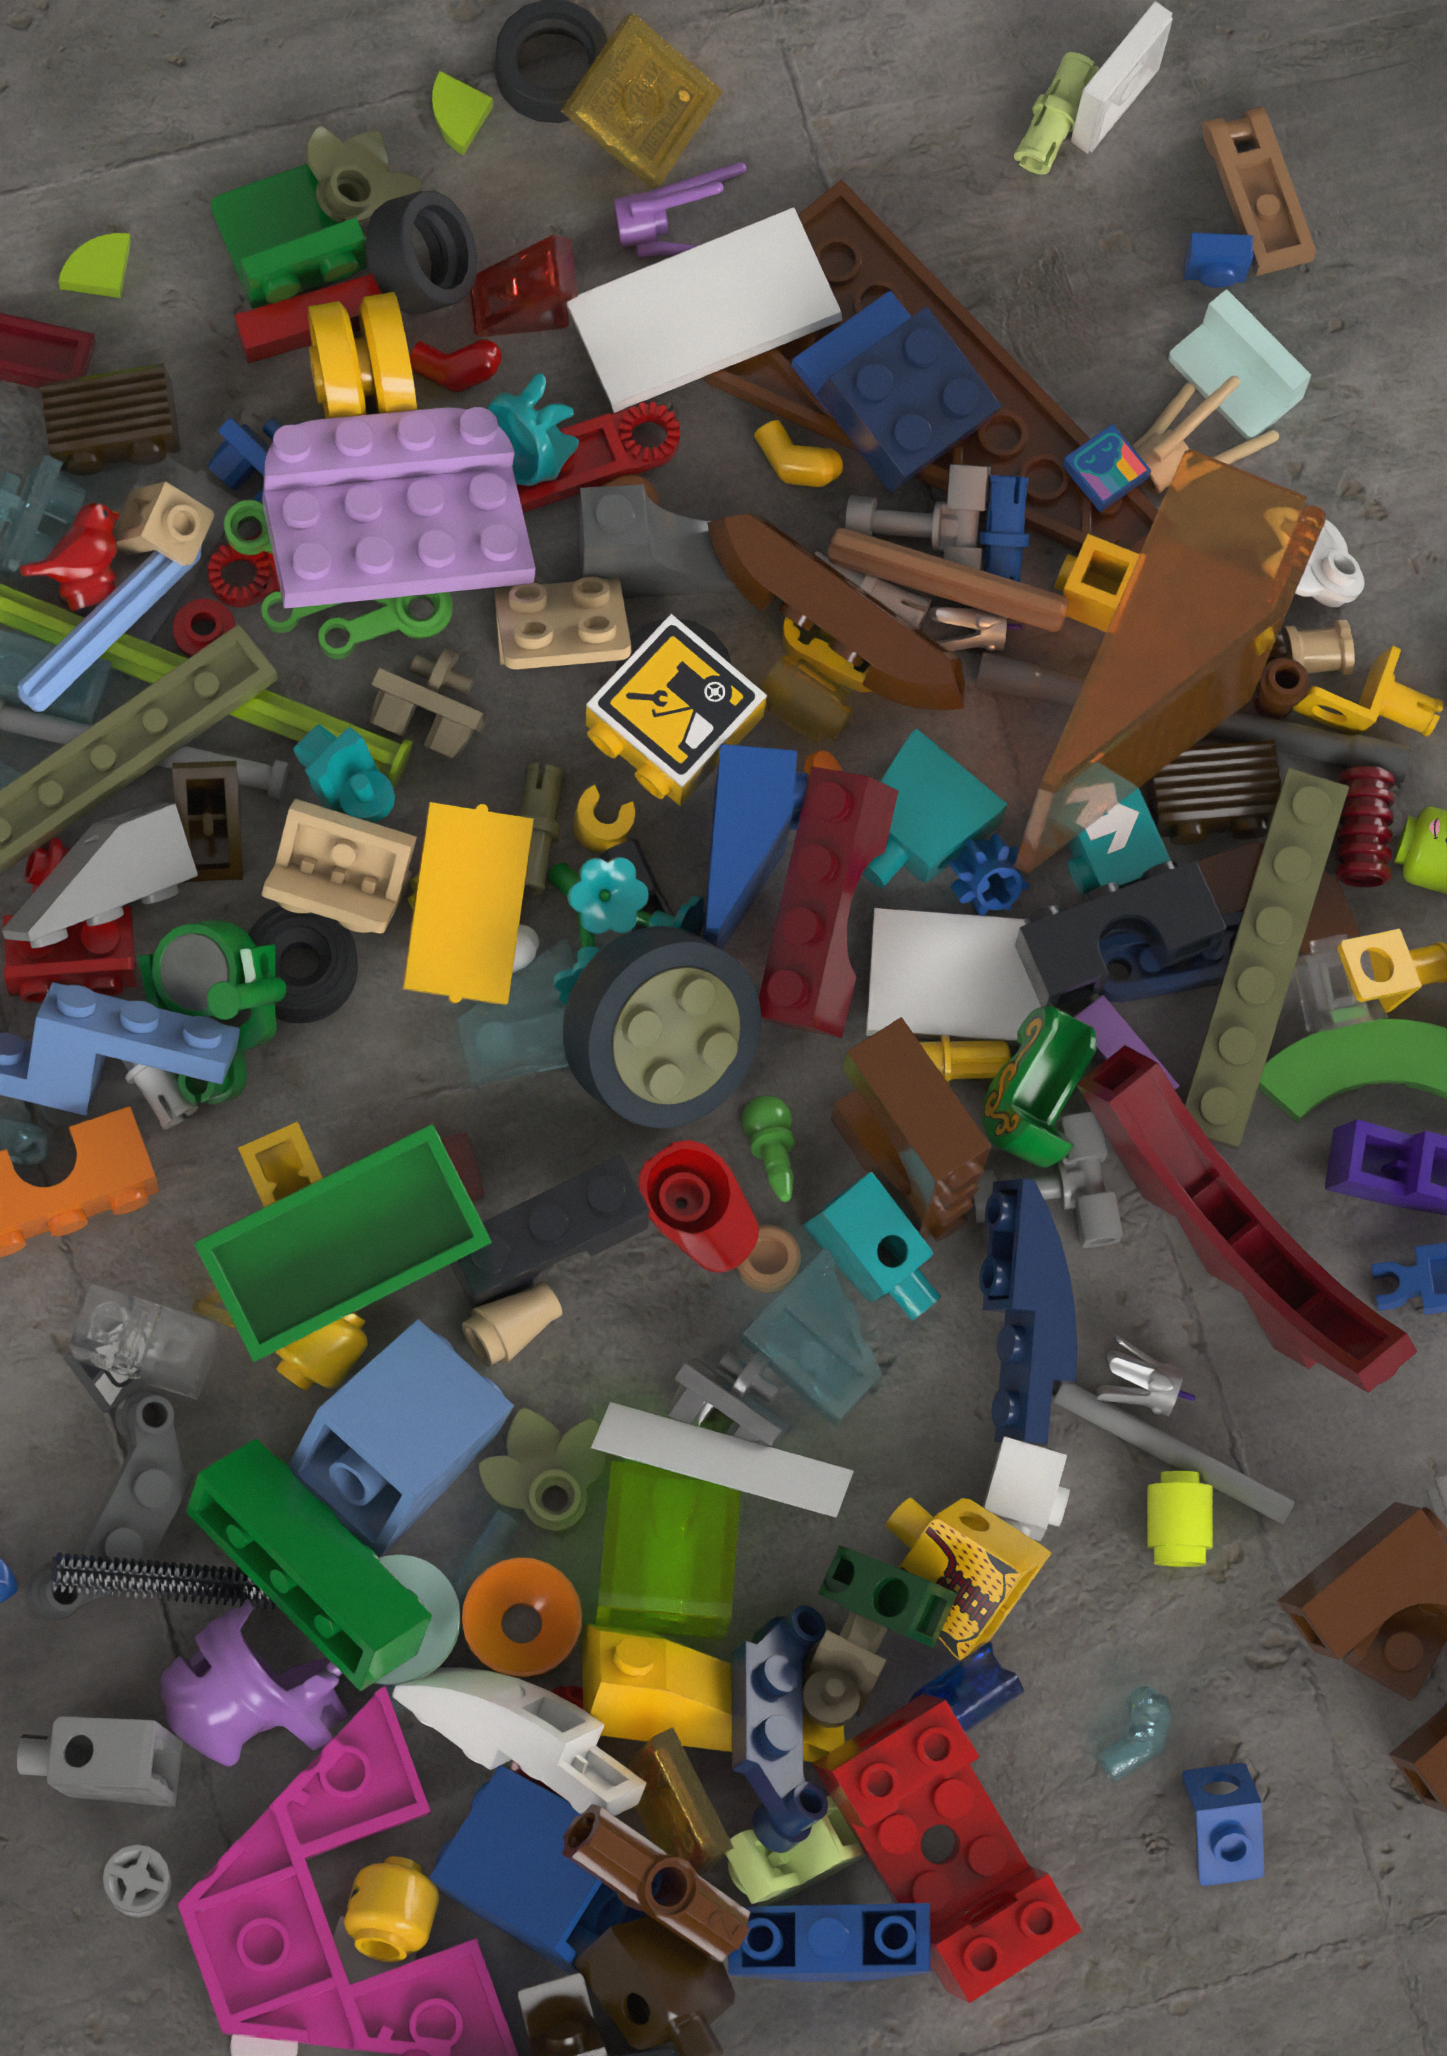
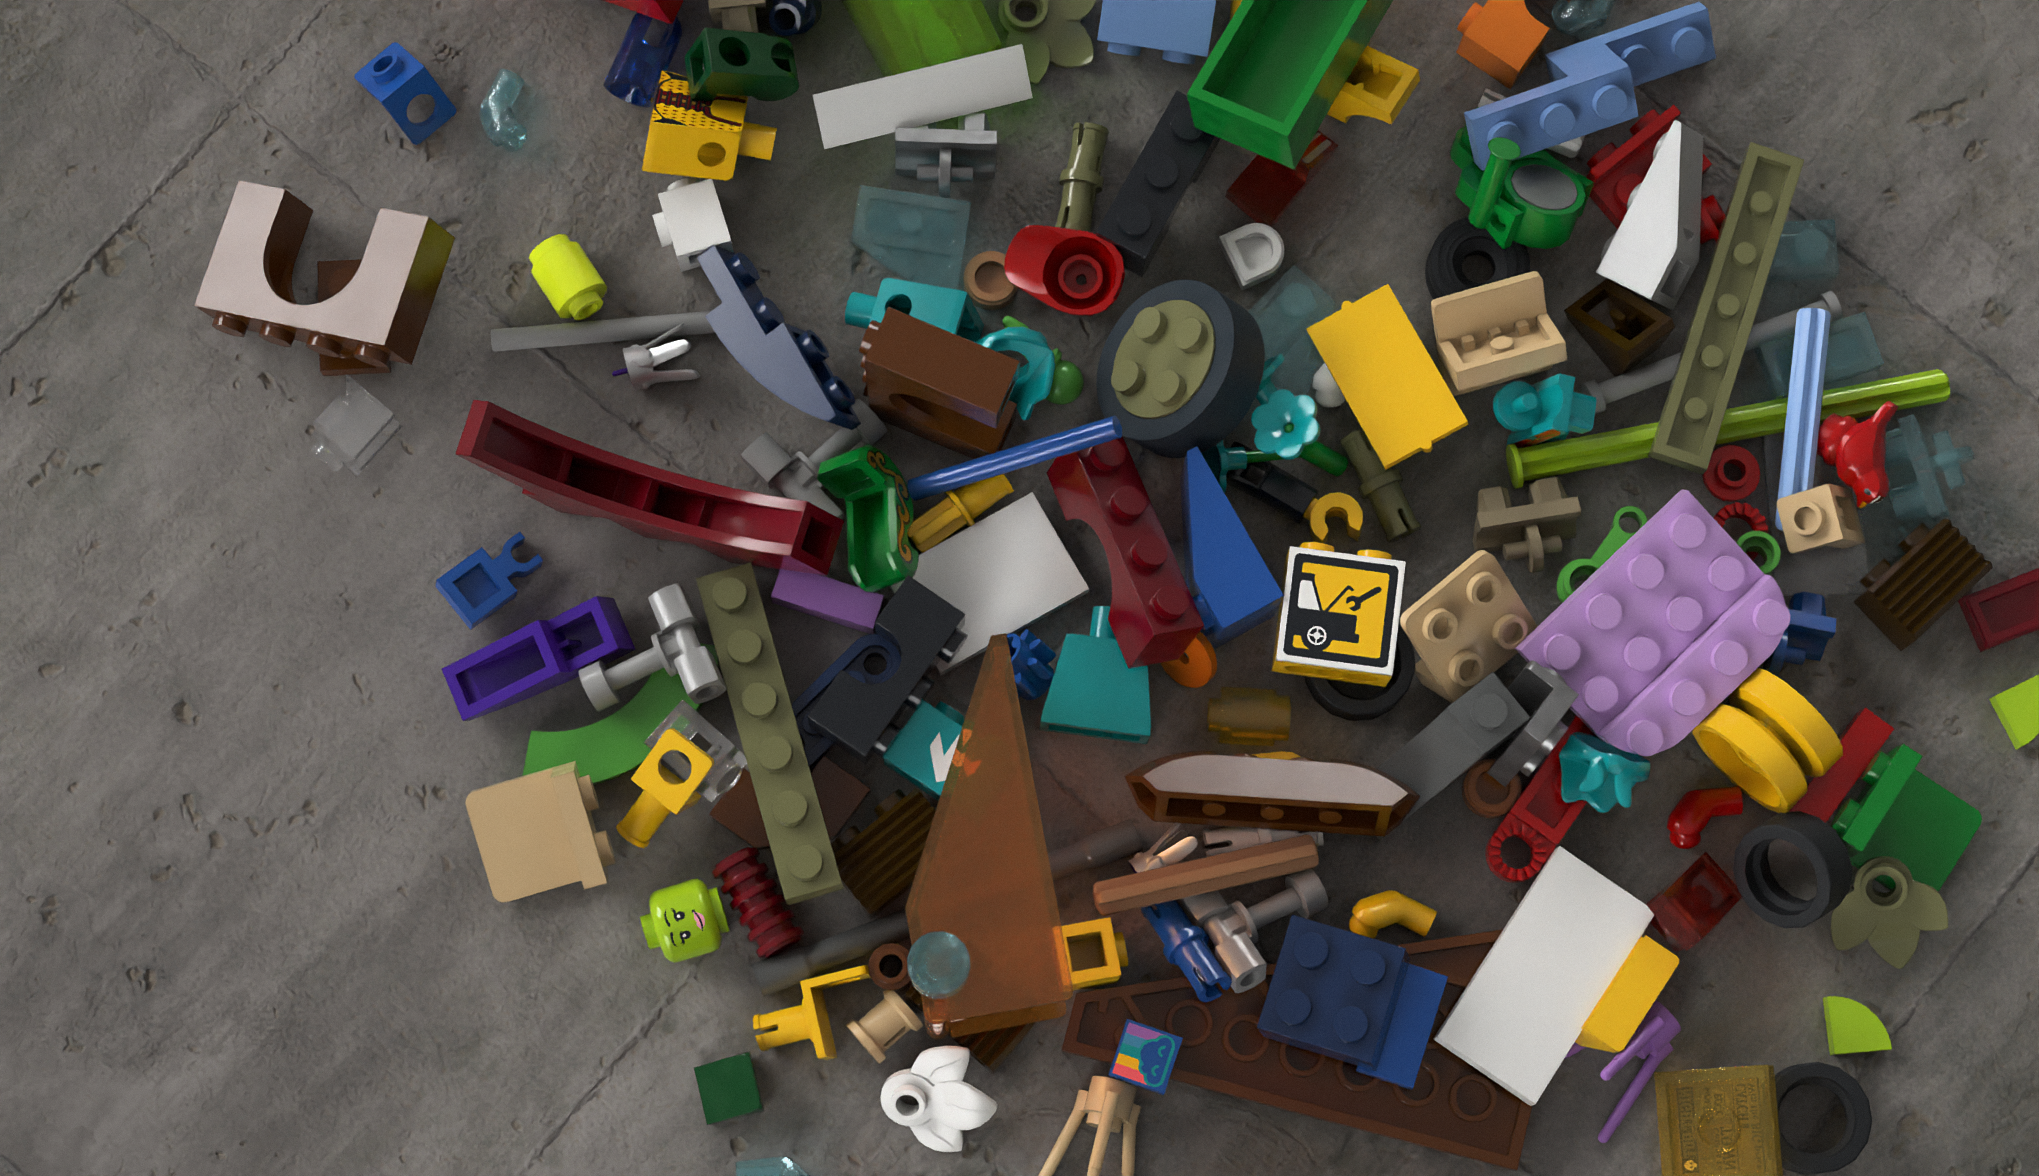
camera: 150 degrees right, 5 degrees up
(498, 1121) = (1253, 253): none -> white tile
(508, 1324) = (1141, 108): tan cone -> none
(553, 509) = (1545, 700): none -> flat silver bracket
(616, 1294) = (1082, 177): none -> olive pin
(643, 242) = (1628, 996): none -> yellow slope
(805, 1132) = (1037, 375): none -> teal piece
(849, 1033) = (1015, 458): none -> blue bar
(1300, 520) = (937, 955): none -> clear light blue wheel
(1304, 1088) = (674, 649): none -> light grey bar

